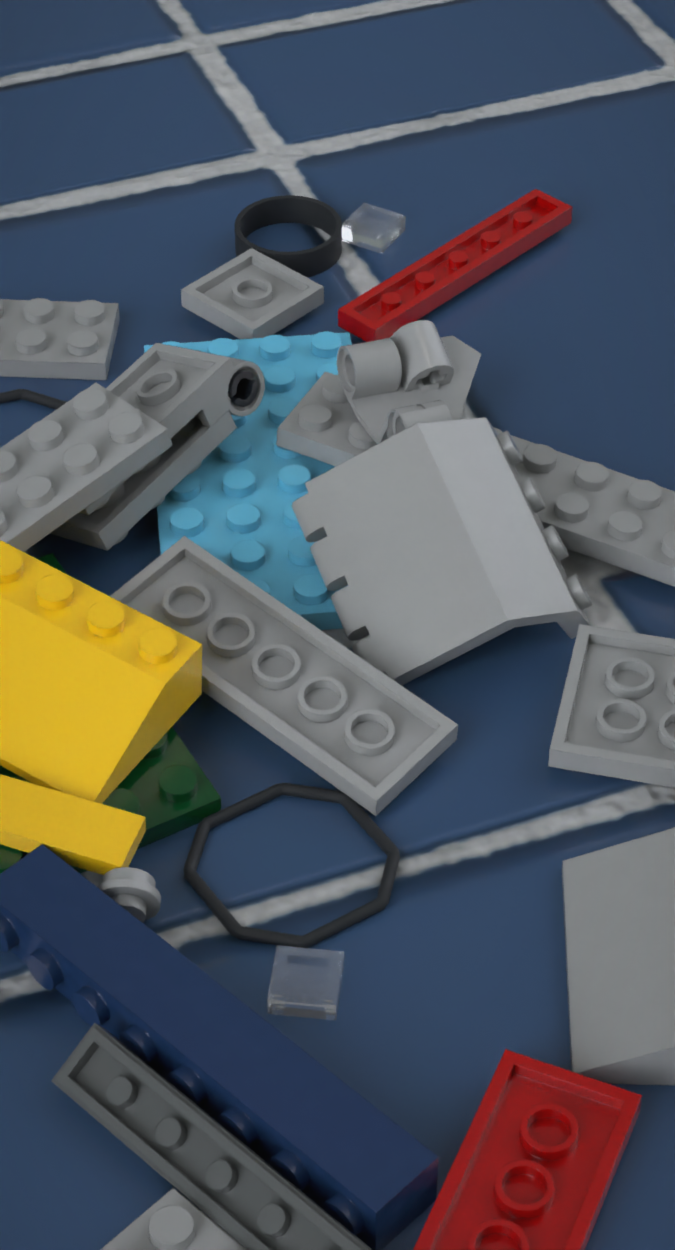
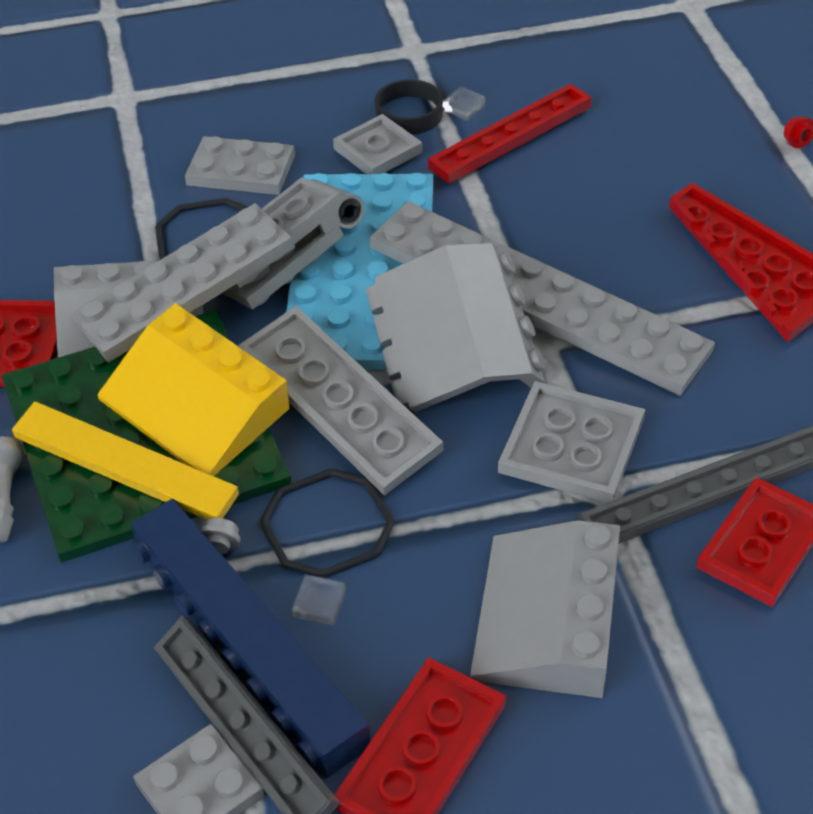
camera: 10 degrees right, 5 degrees up
(406, 378) = (456, 212): light grey panel -> none

